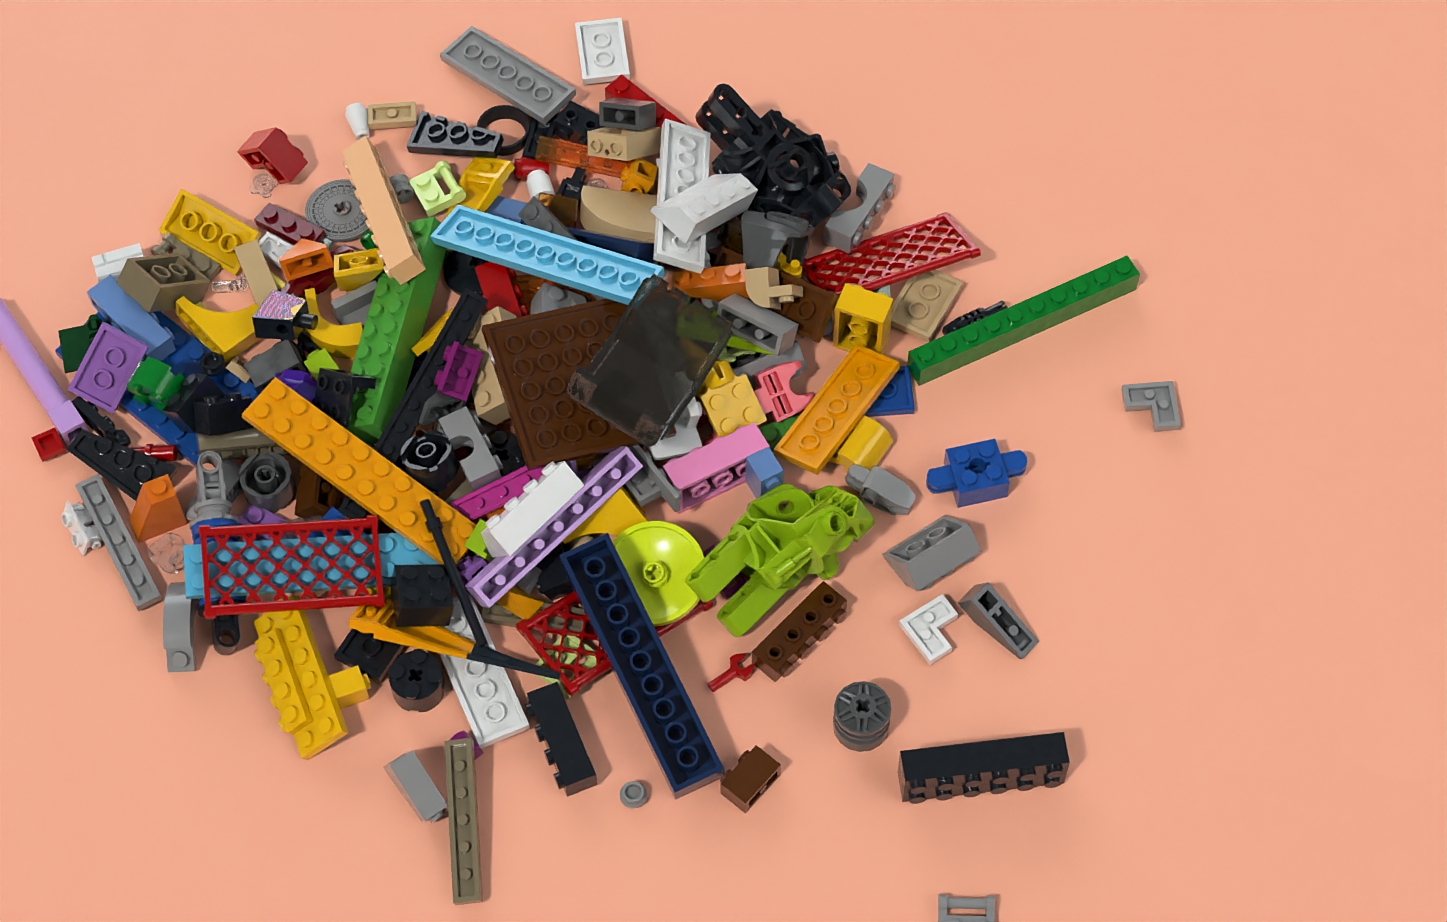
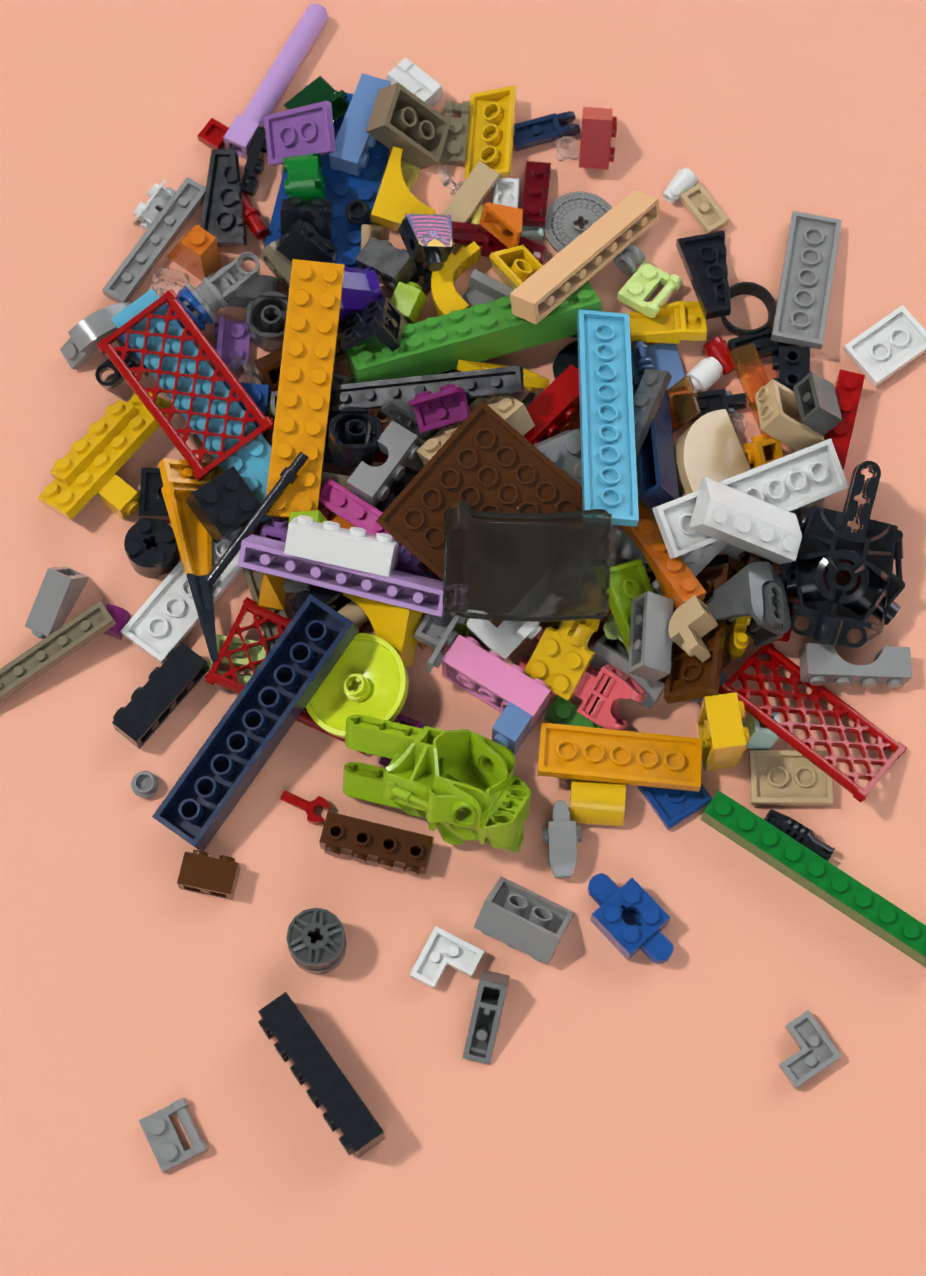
camera: 60 degrees right, 10 degrees up
(235, 191) = (544, 130): none -> dark blue hinge

